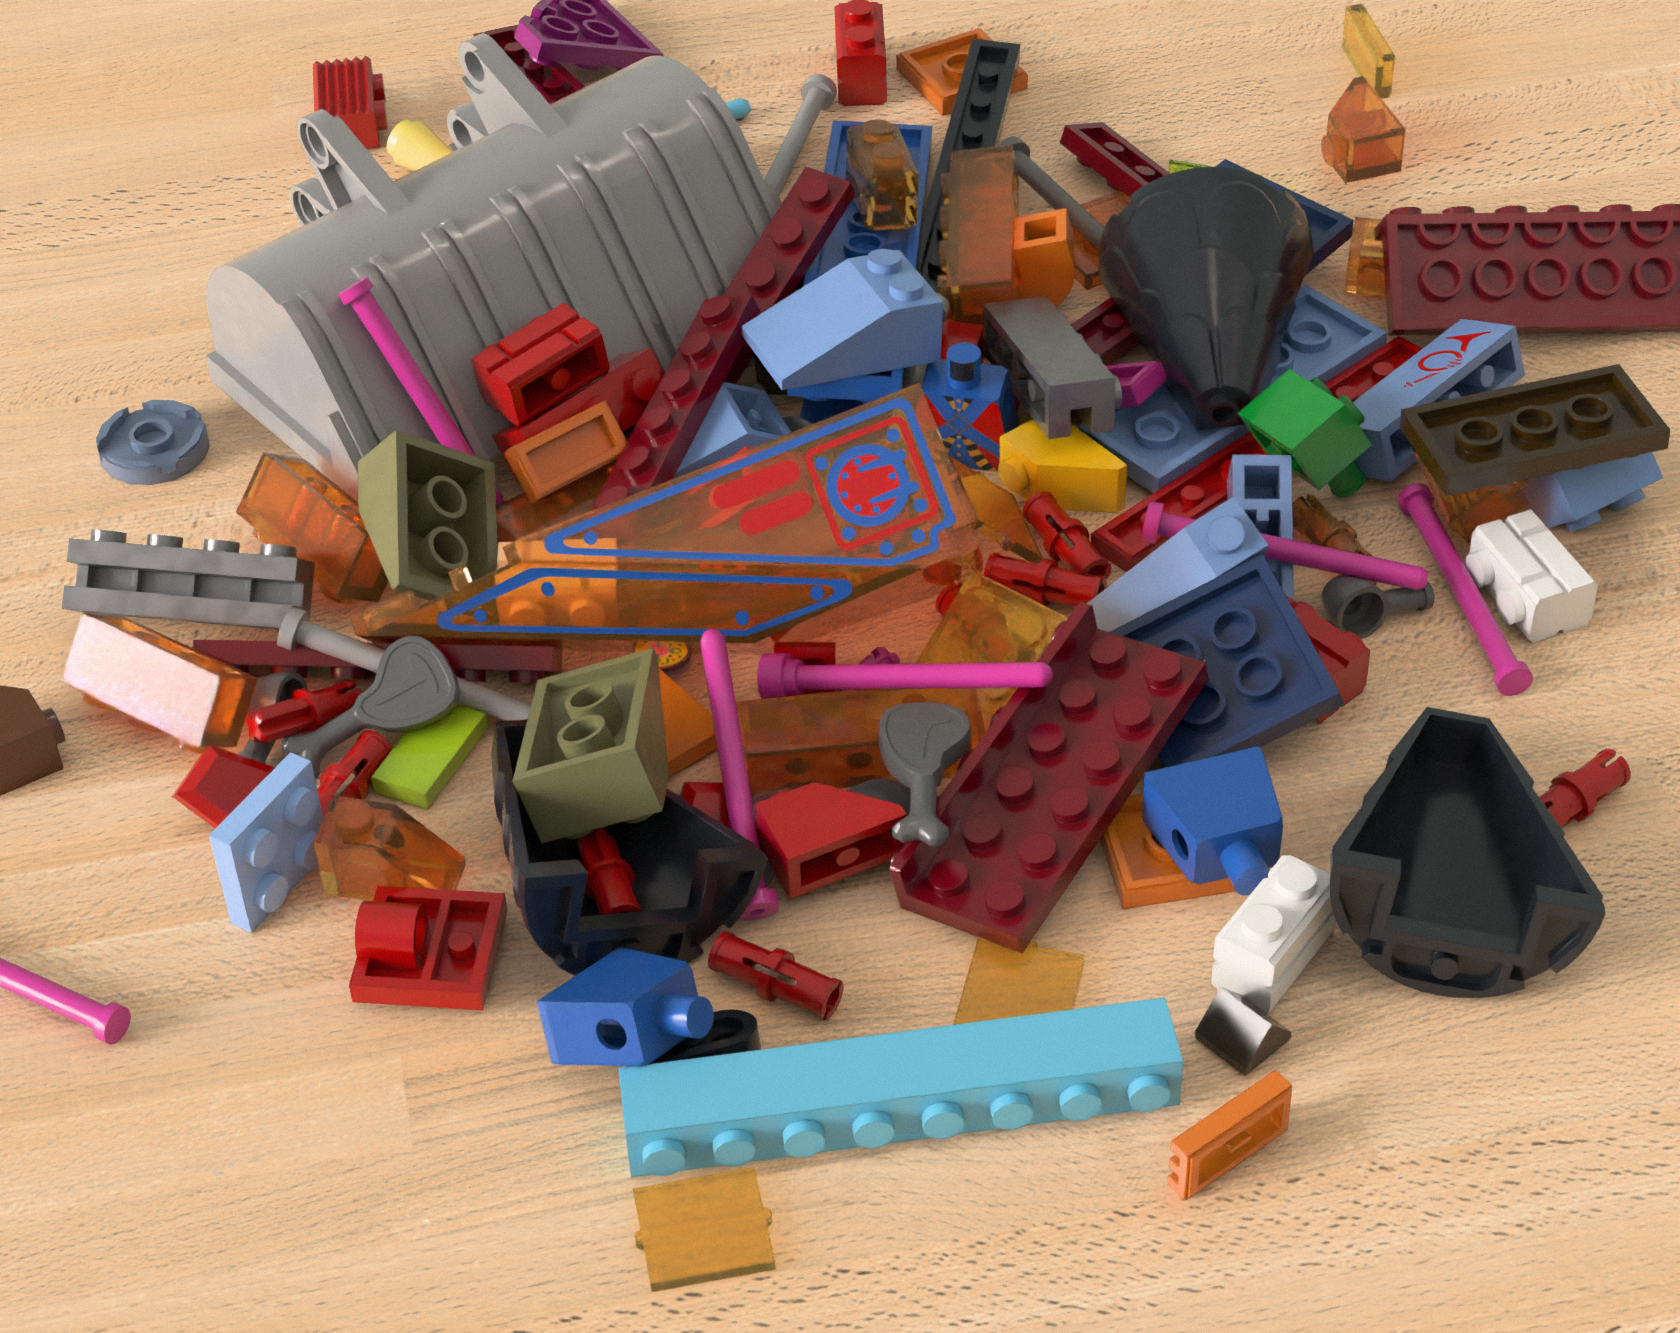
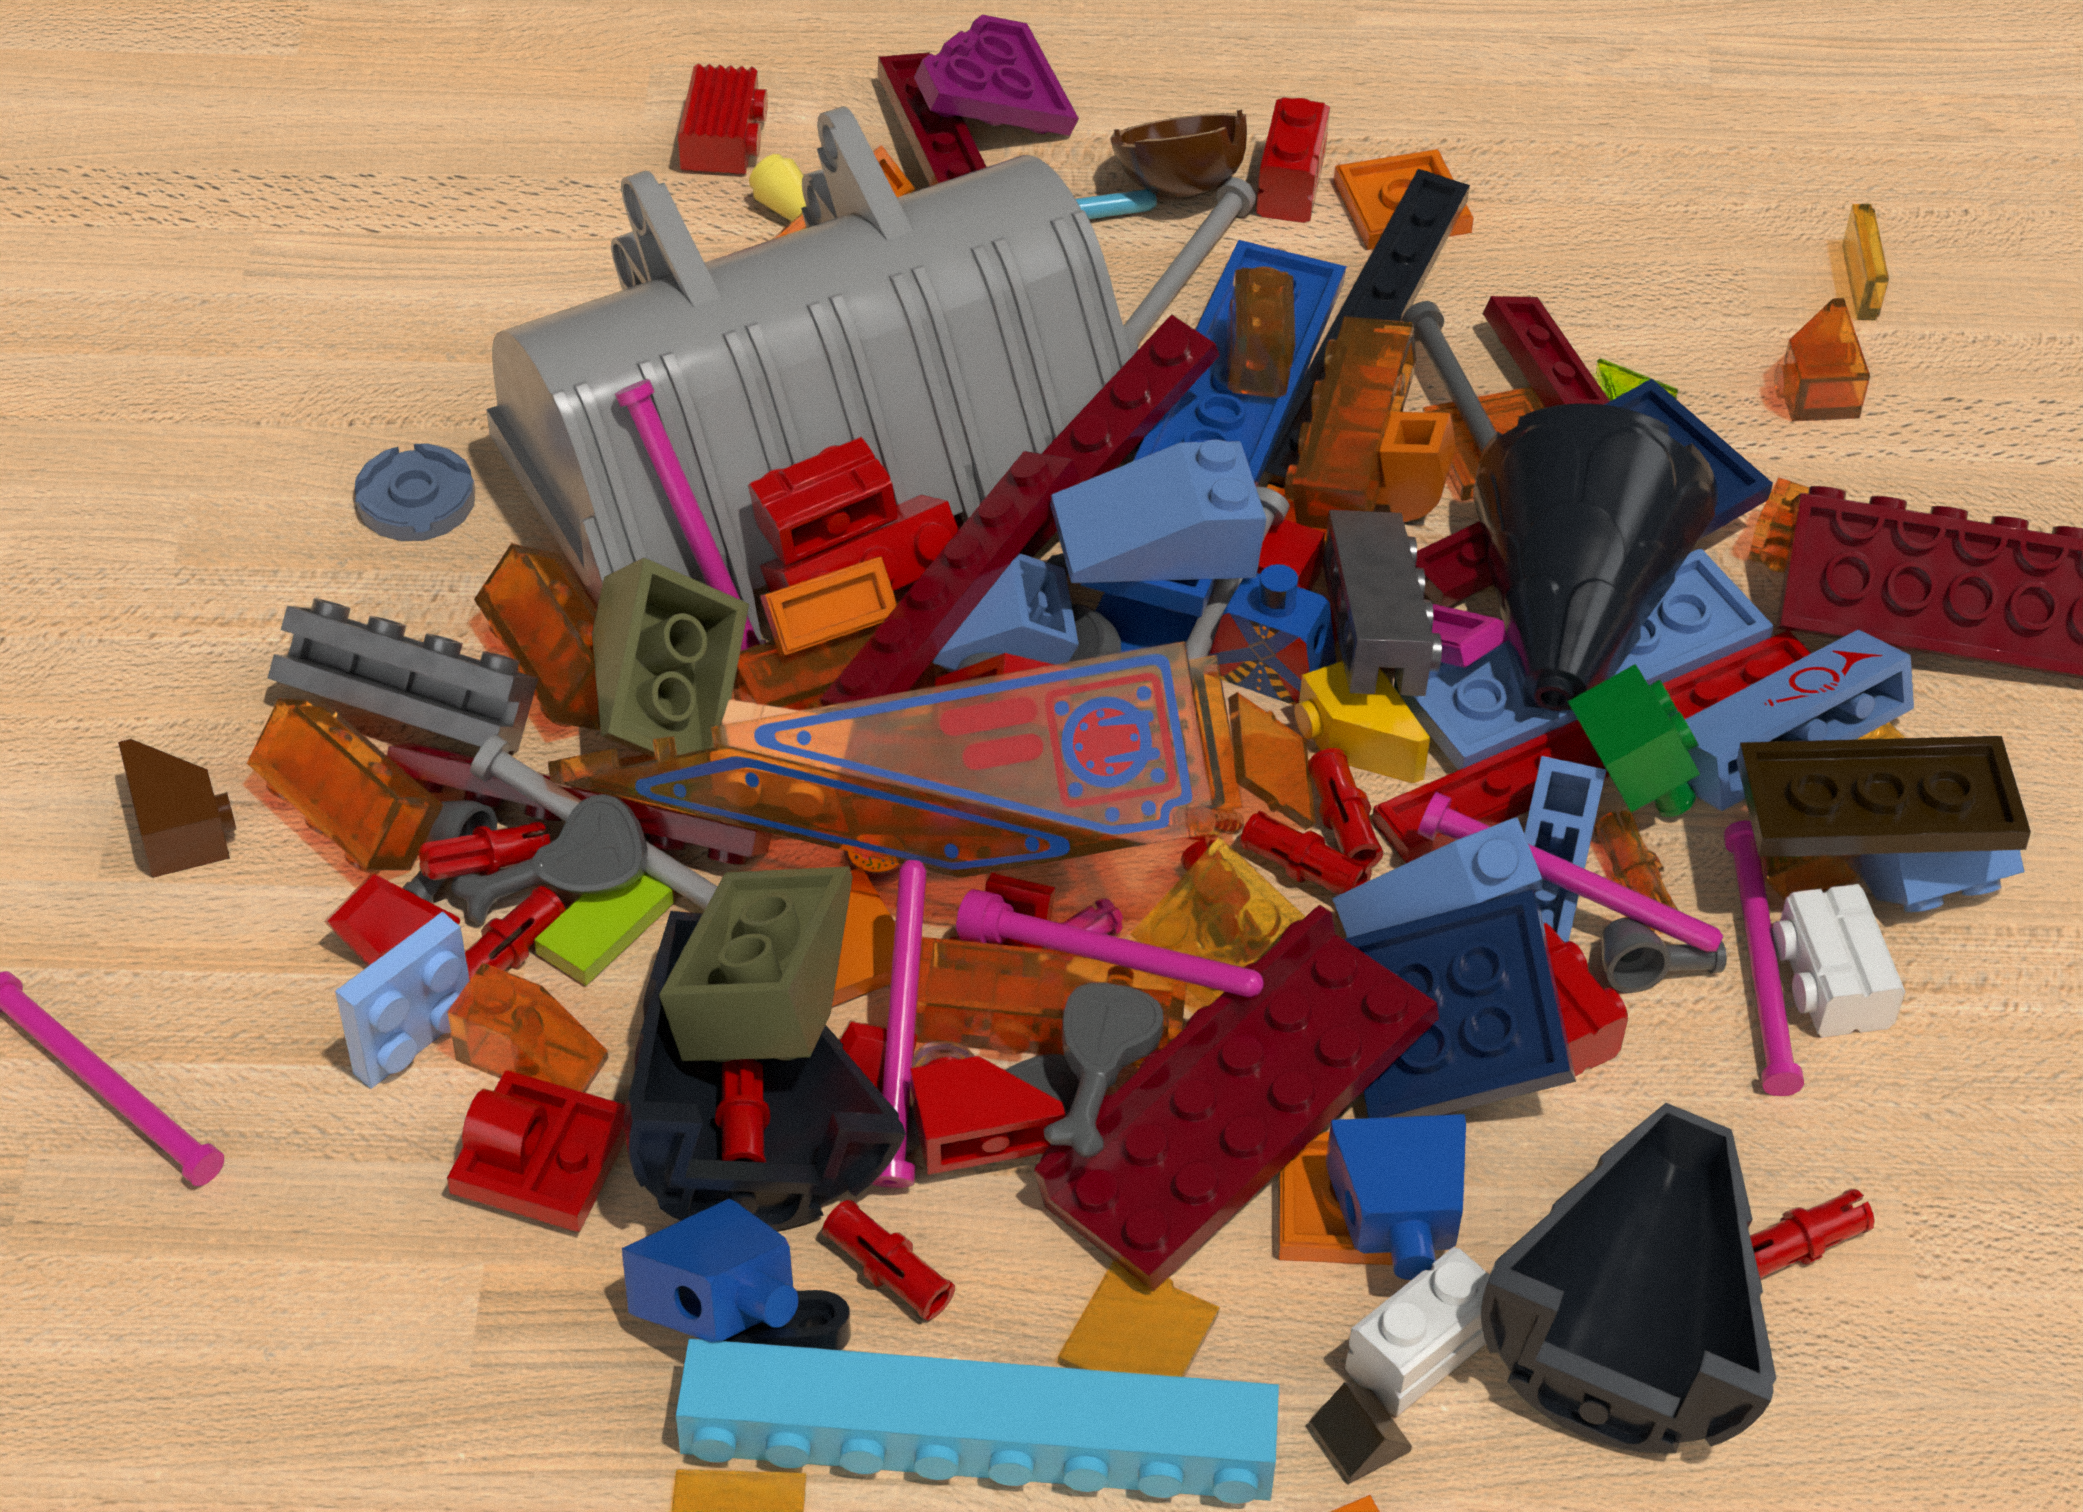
camera: 10 degrees right, 5 degrees up
(765, 64) = (1183, 153): none -> reddish brown cylinder

